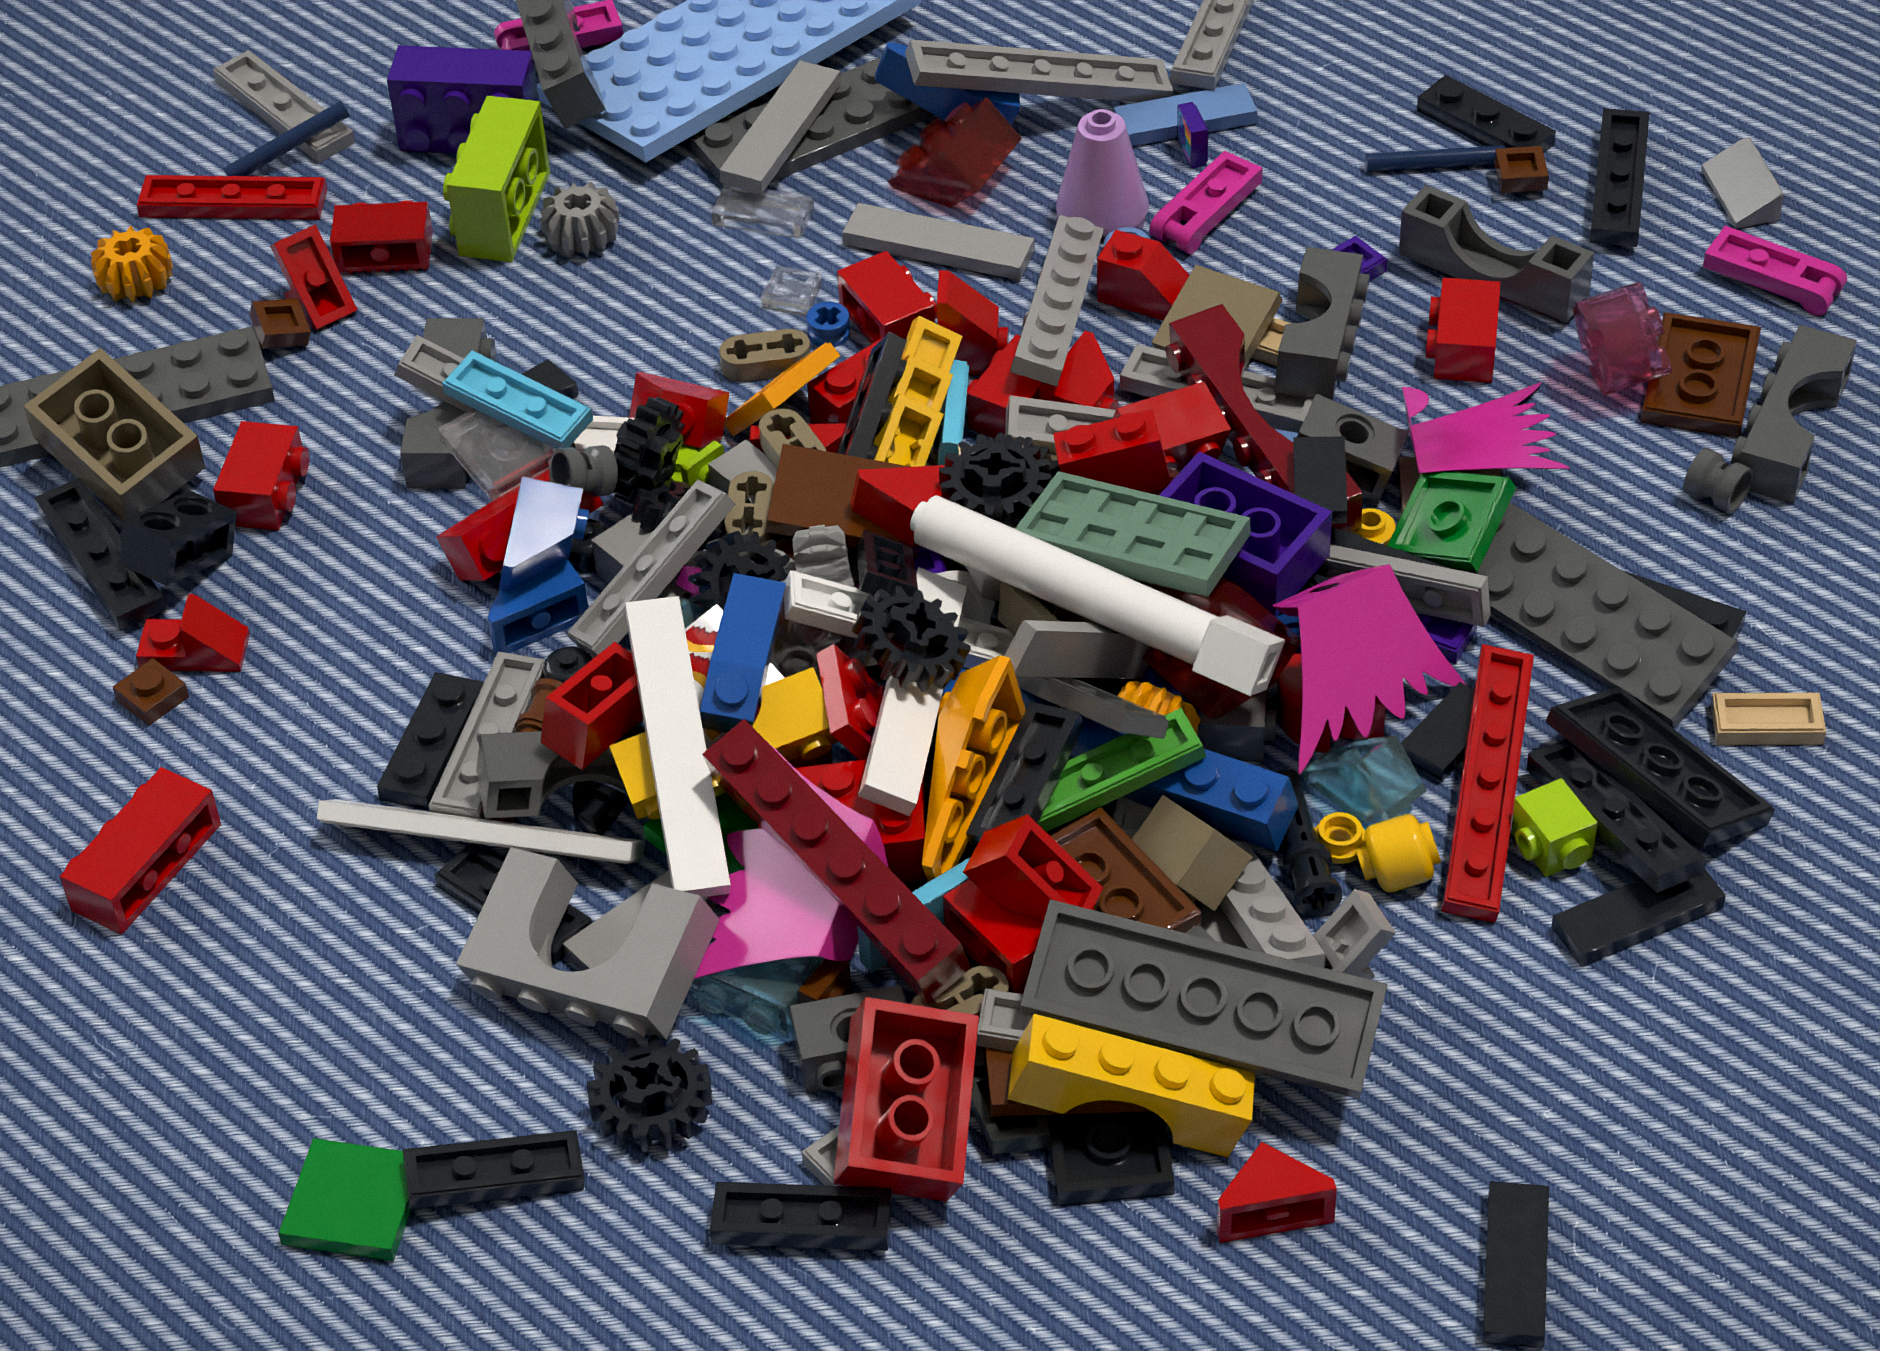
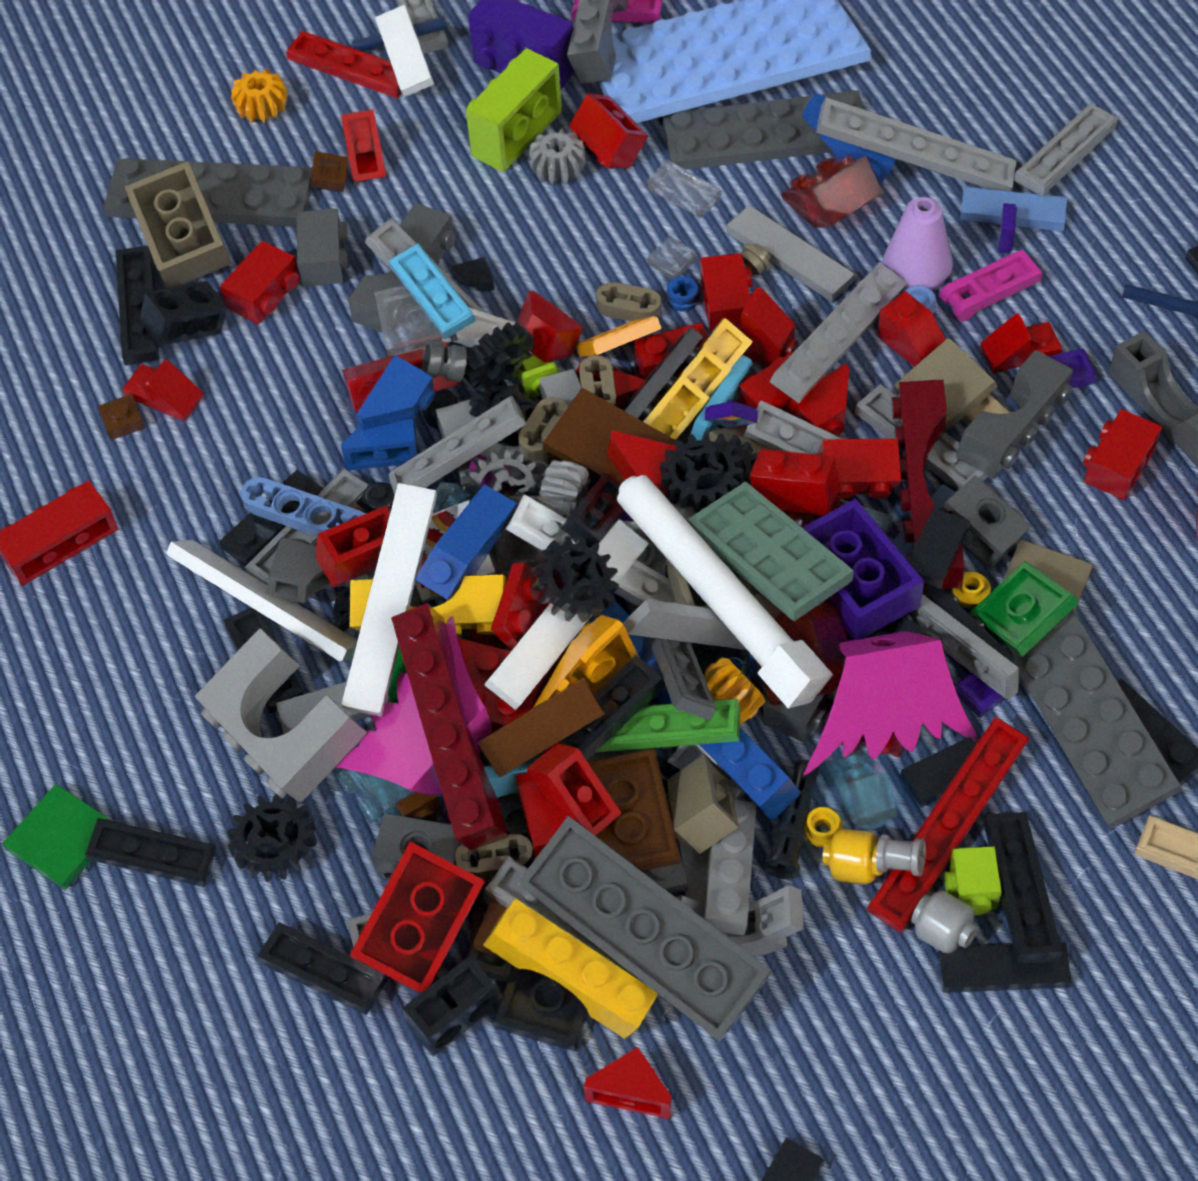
camera: 25 degrees right, 10 degrees up
(308, 155) = (404, 50): none -> white tile
(323, 410) = (320, 247): none -> dark grey brick
(381, 236) = (424, 127): red brick -> none
(482, 718) = (300, 519): none -> medium blue beam
(634, 170) = (608, 131): none -> red brick
(780, 126) = (721, 129): light grey tile -> none
(905, 253) = (756, 258): none -> dark tan plate
(958, 818) = (541, 727): none -> reddish brown tile
(984, 417) = (731, 414): none -> dark purple tile
(999, 1188) = (451, 1006): none -> black brick
(1274, 252) = (1014, 343): none -> red slope
(1459, 824) = (901, 855): none -> light grey bush
(1478, 436) = (1079, 546): dark pink piece -> none
(1546, 881) = (944, 922): none -> light grey head
(1660, 766) = (1077, 861): black tile -> none

